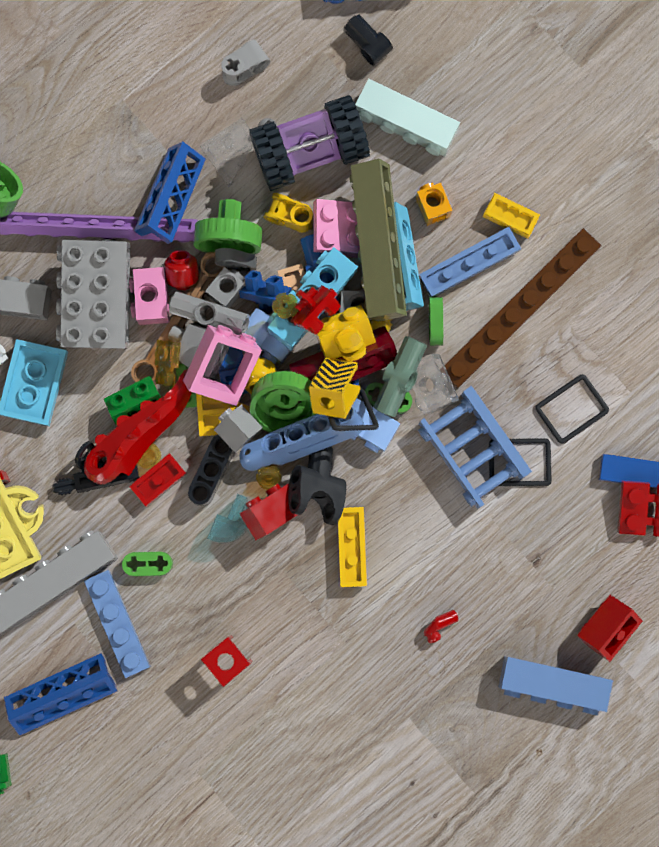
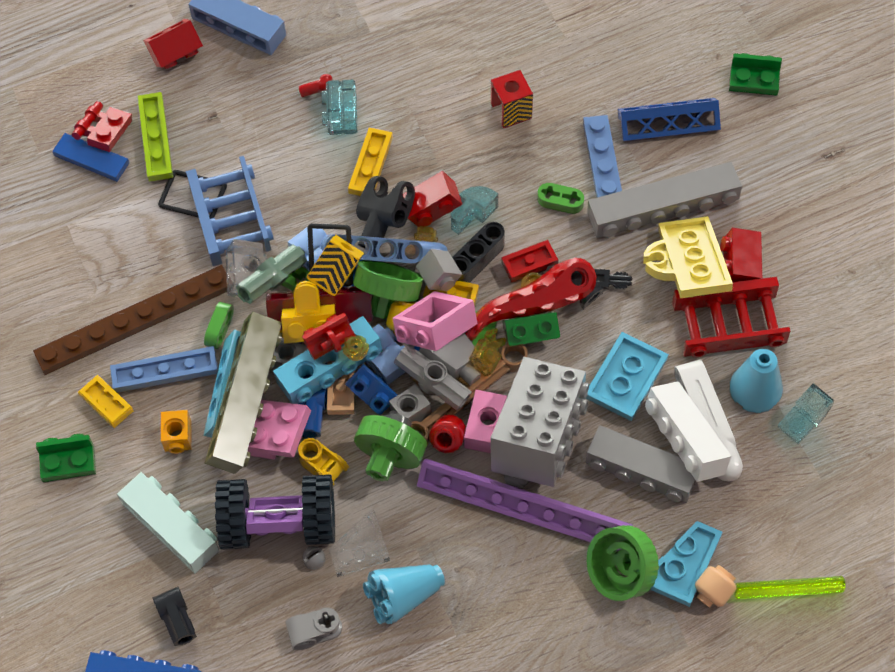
camera: 160 degrees left, 20 degrees down
(162, 190) = (438, 510): blue fence -> none
(176, 114) = (401, 589): none -> medium azure cone
(404, 603) = (340, 107): none -> clear light blue brick
(522, 152) = (66, 457): none -> green bracket
(563, 440) = (116, 245): black piece -> none
(583, 514) = (155, 136): none -> lime plate

